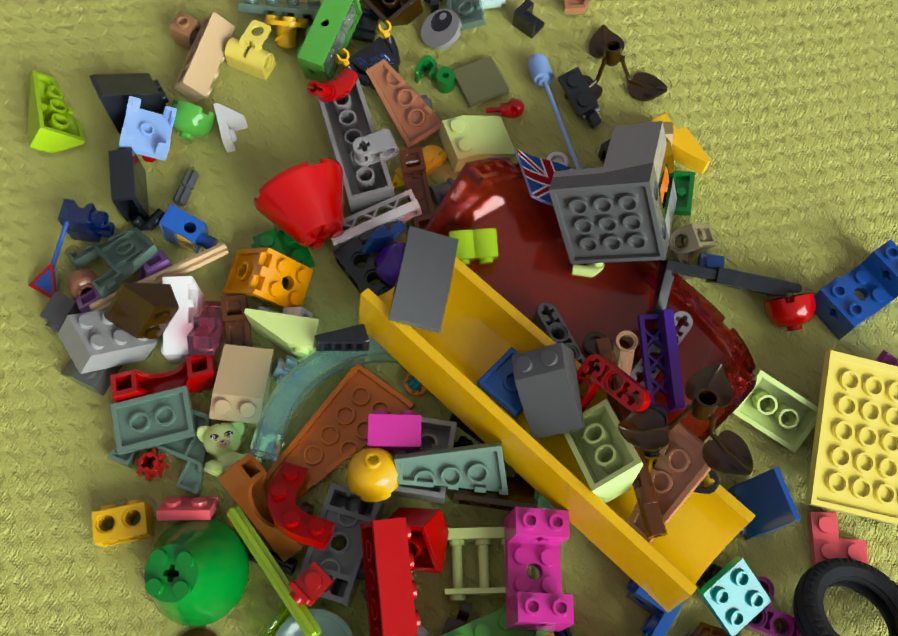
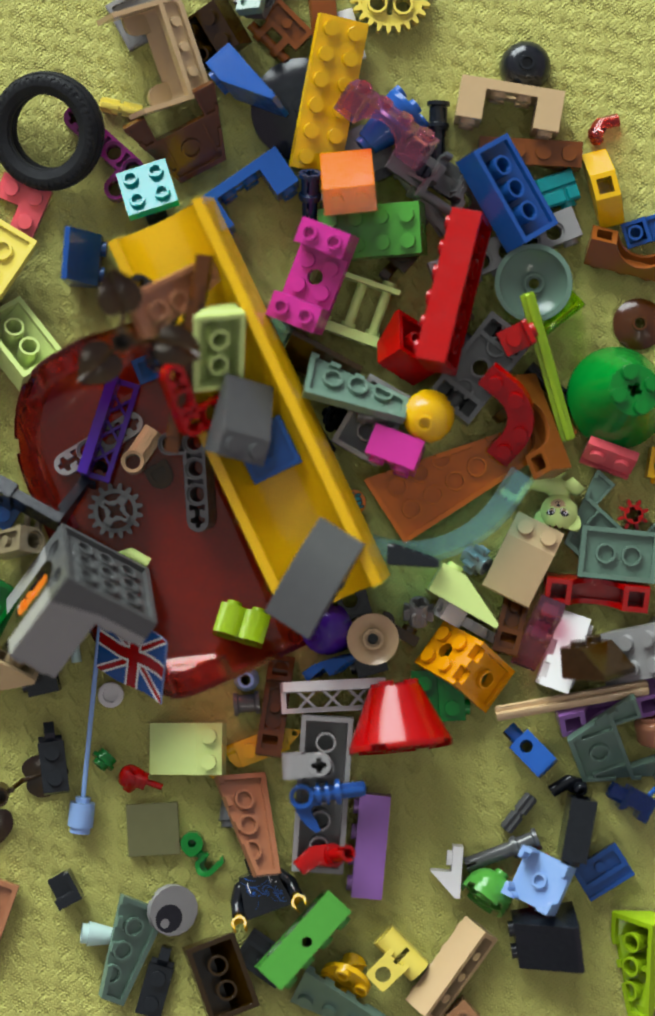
camera: 155 degrees left, 20 degrees up
(94, 168) = (603, 871): none -> blue plate
(181, 159) = (502, 851): none -> dark grey pin
(301, 121) = (370, 845): none -> medium lavender brick
(324, 309) = (418, 612): none -> light grey gear
(333, 289) = (405, 632): none -> dark brown plate
(354, 256) = (372, 653): none -> tan dish
(356, 129) = (324, 793): none -> blue piece
(540, 113) = (103, 760): none -> green plate
(630, 295) = (109, 521): none -> dark grey gear

